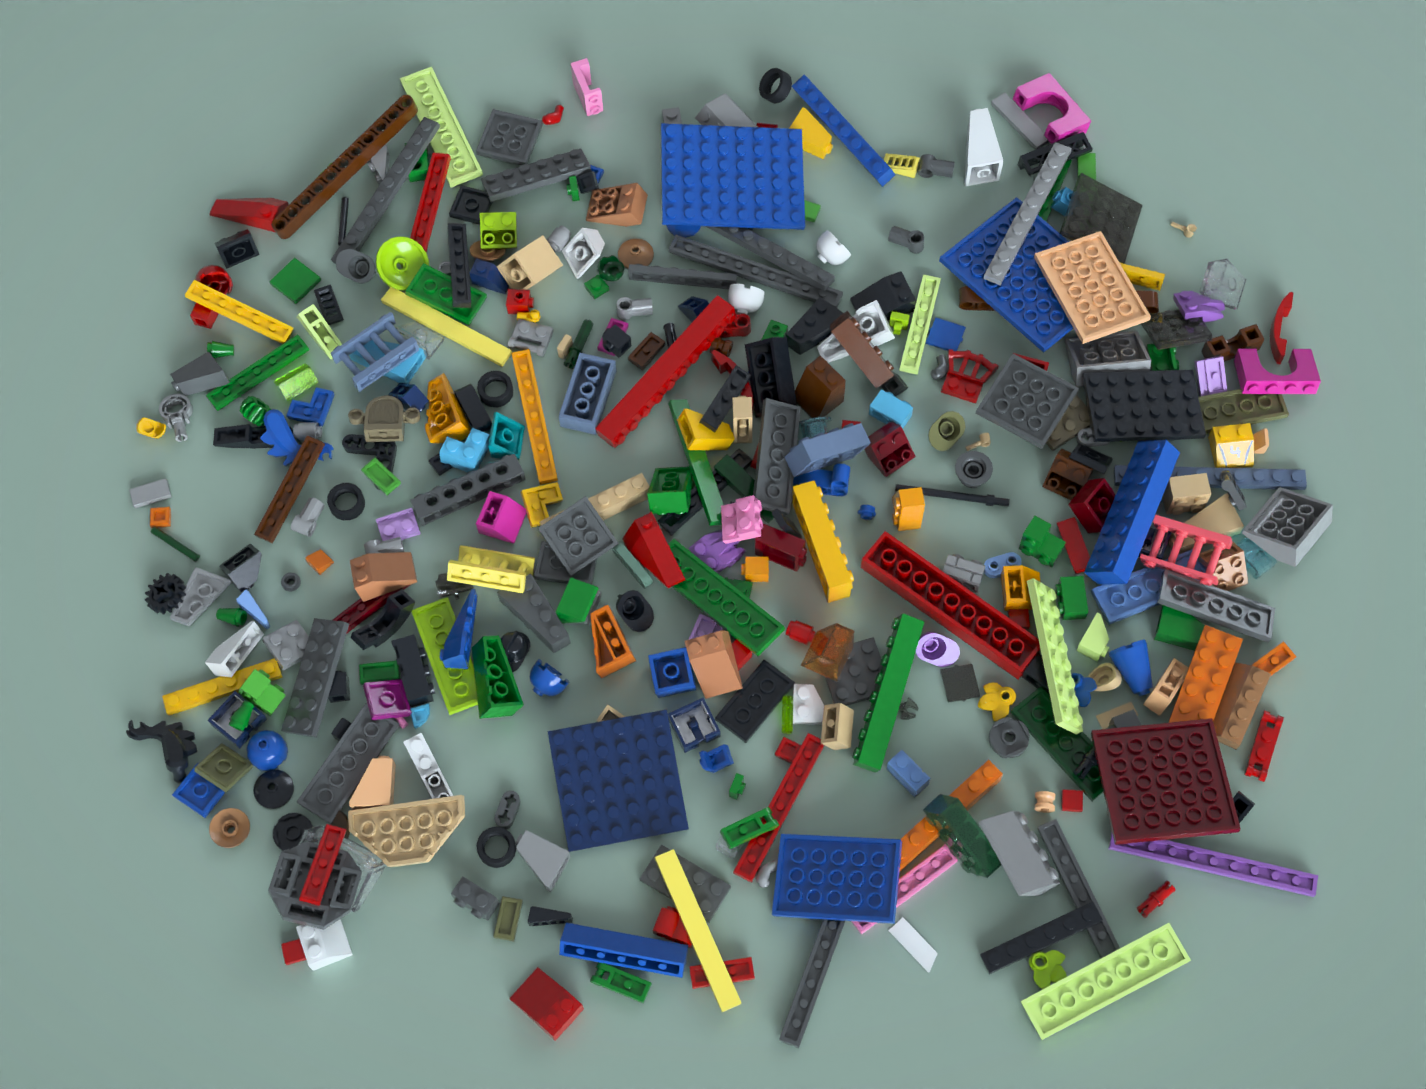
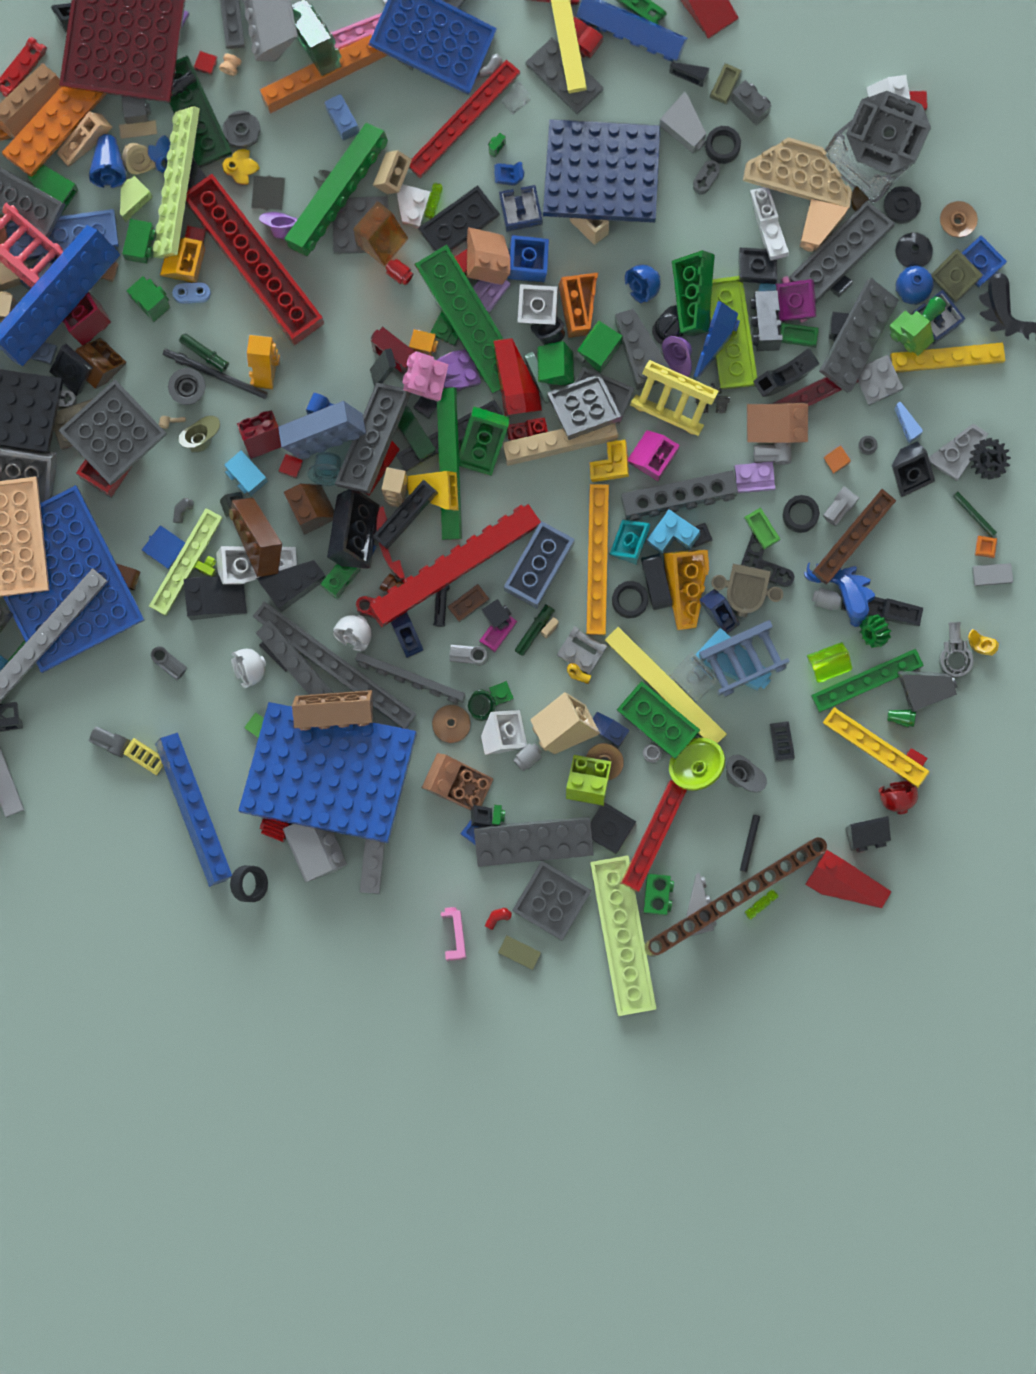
camera: 165 degrees left, 15 degrees up
(232, 652) = (935, 380): white slope -> none
(233, 616) = (929, 422): green cone -> none
(295, 280) = (812, 782): green tile -> none
(315, 410) = (818, 620): blue plate -> none
(319, 330) = (796, 711): yellowish green slope -> none
(322, 864) = (879, 147): red tile -> none
(389, 186) = (696, 859): dark grey plate -> none
(435, 725) = (756, 266): none -> black tile
(459, 265) = (638, 746): black plate -> none
(497, 617) = (678, 354): none -> medium lavender piece
(519, 301) = (584, 691): red brick -> none
(528, 96) = (519, 952): none -> olive tile
(617, 575) = (555, 364): none -> green slope
(625, 516) = (526, 429): none -> red slope
(650, 630) = (538, 304): none -> white slope
(742, 222) = (333, 709): none -> medium nougat slope
(748, 828) = (496, 97): green plate -> none
(787, 750) = (441, 169): red tile -> none
(814, 136) = (228, 818): yellow slope -> none
(821, 541) = (354, 347): yellow brick -> none
(867, 512) = (301, 375): blue plate -> none
(963, 385) = (167, 487): red plate -> none
(964, 571) = (231, 291): light grey brick -> none
(970, 510) = (210, 357): none -> dark green axle
(983, 152) = (56, 743): white slope -> none
(1074, 544) = (117, 291): red tile -> none

